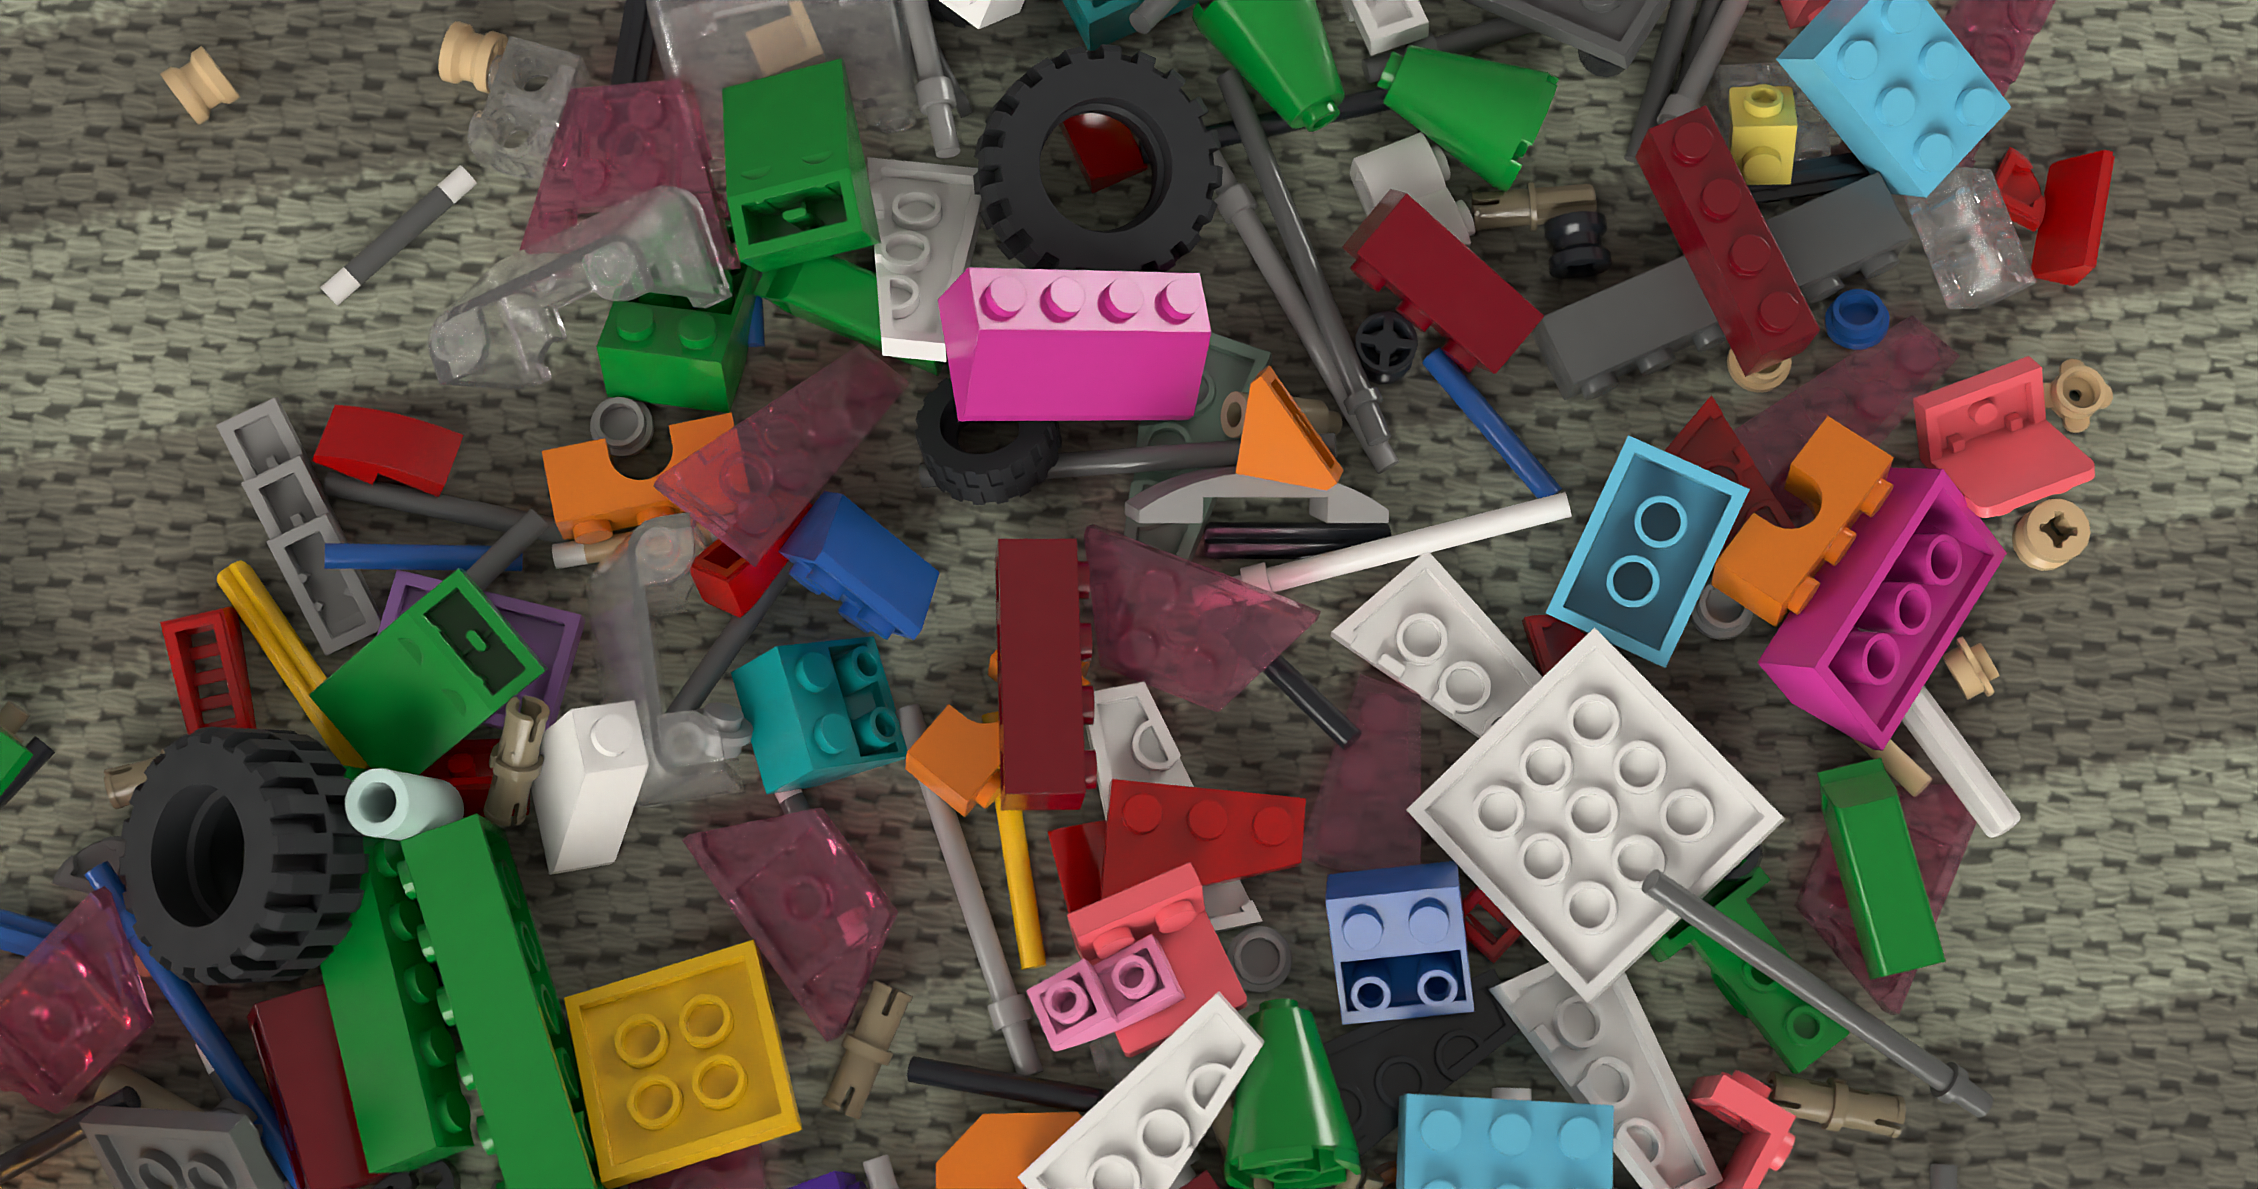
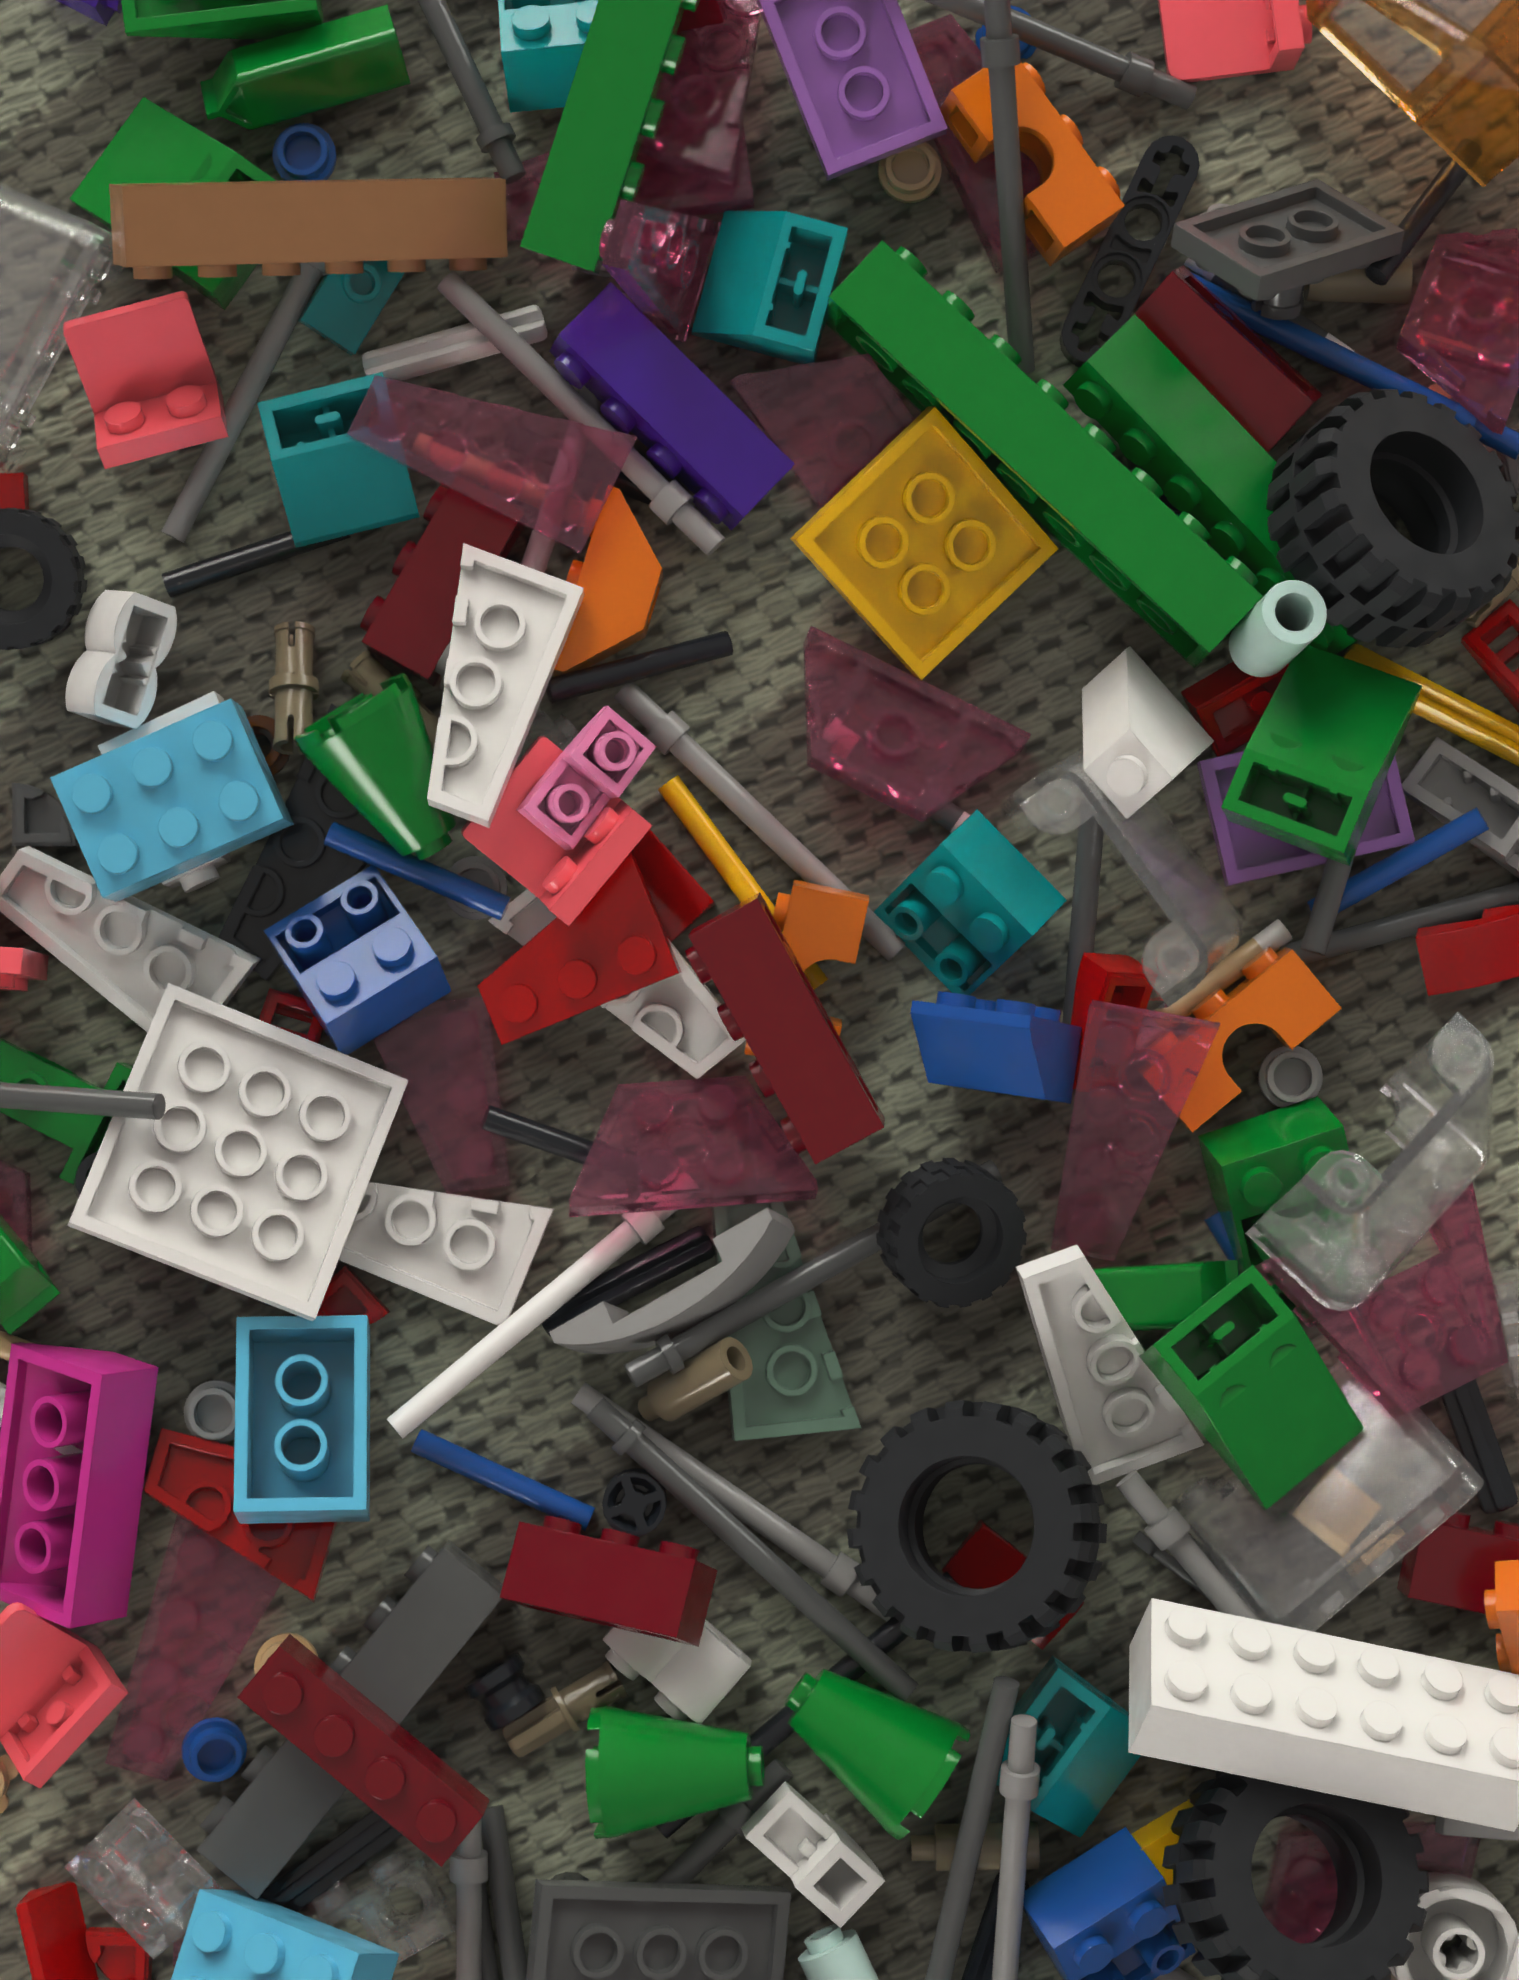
camera: 155 degrees right, 10 degrees up
(516, 760) = (1206, 721): dark tan pin -> none
(732, 726) = (1043, 849): light grey plate -> none
(867, 1049) = (774, 638): dark tan pin -> none
(1075, 344) = (907, 1342): dark pink slope -> none
(1281, 441) = (673, 1346): orange slope -> none
(1299, 988) = (417, 871): none -> blue bar
(1763, 133) = (382, 1881): light yellow bracket -> none
(1775, 566) = (180, 1460): orange arch -> none

